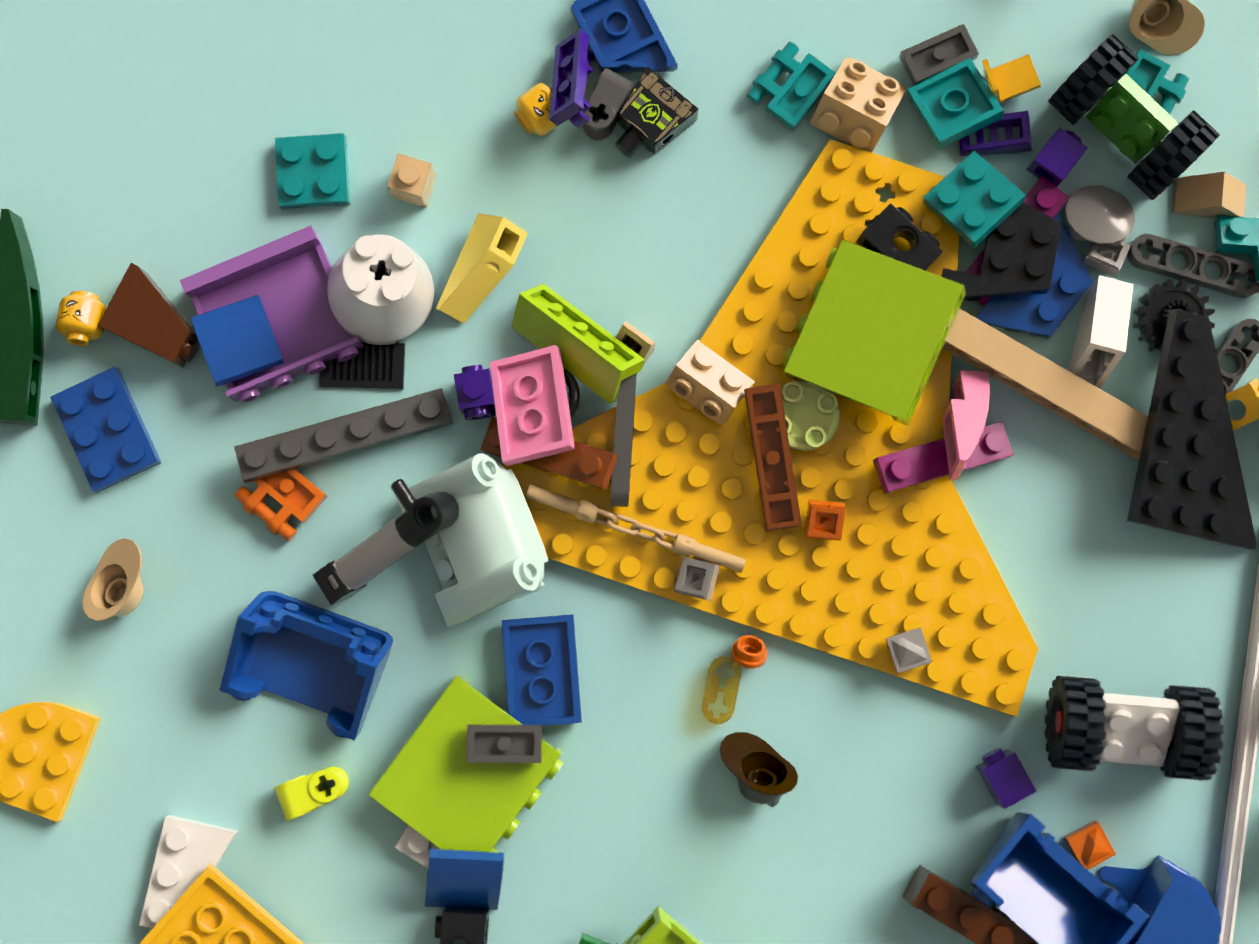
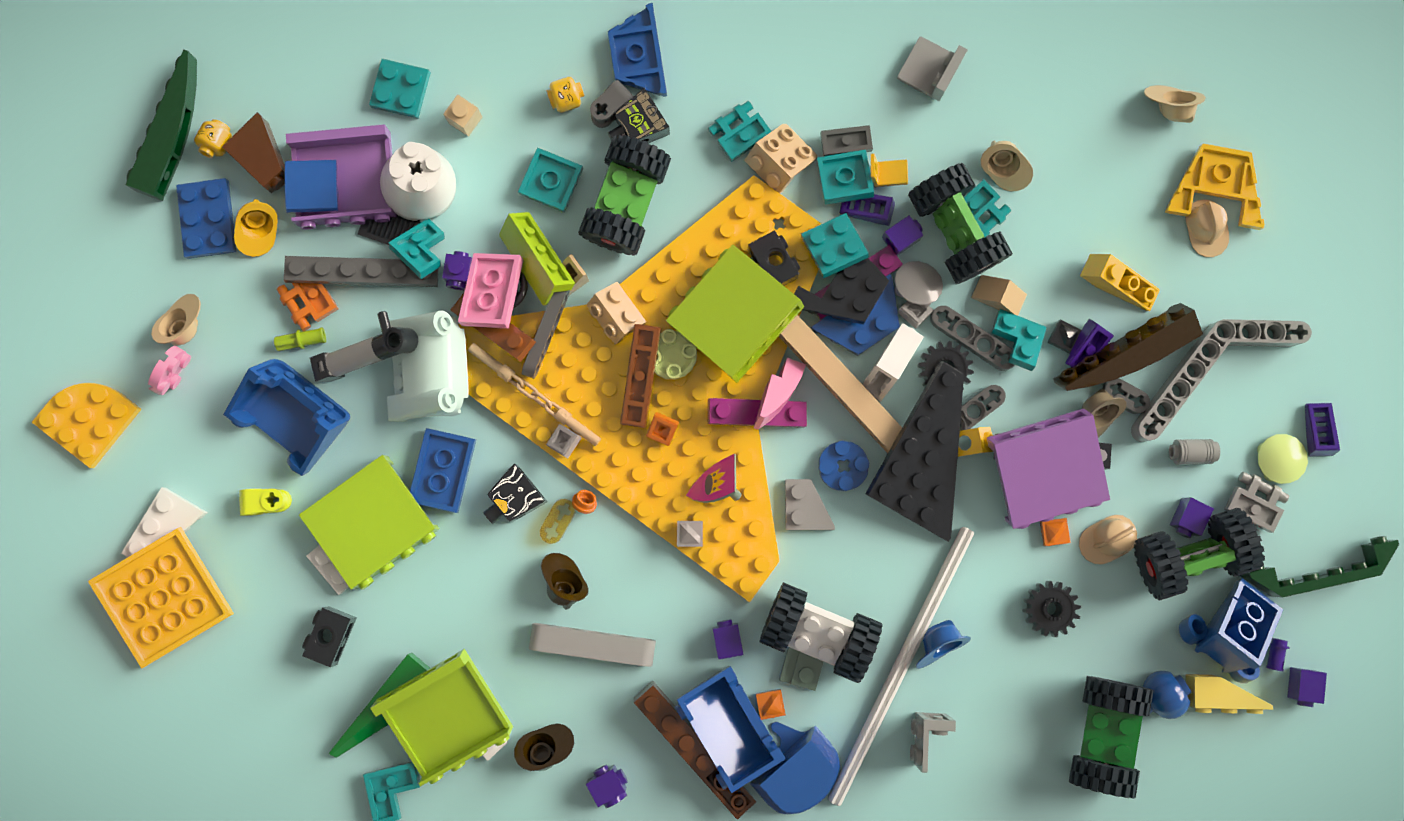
camera: 15 degrees right, 0 degrees up
(122, 657) = (166, 373): none -> bright pink plate
(179, 422) = (255, 228): none -> yellow piece
(288, 554) = (300, 339): none -> lime axle
(405, 378) = (414, 247): none -> teal plate
(464, 879) = (343, 590): blue slope -> none
(481, 265) = (489, 187): light yellow slope -> none
(504, 743) = (398, 508): dark grey plate -> none
(559, 230) = (550, 180): none -> teal plate
(570, 80) = (590, 79): dark purple plate -> none
(651, 676) = (513, 496): none -> black torso
(670, 219) = (625, 195): none -> black plate
(824, 843) = (592, 644): none -> light grey beam
(923, 569) = (716, 482): none -> dark pink shield
(1047, 564) = (804, 507): none -> light grey wing
(1097, 482) = (857, 463): none -> blue plate
(1115, 786) = (801, 669): none -> sand green plate

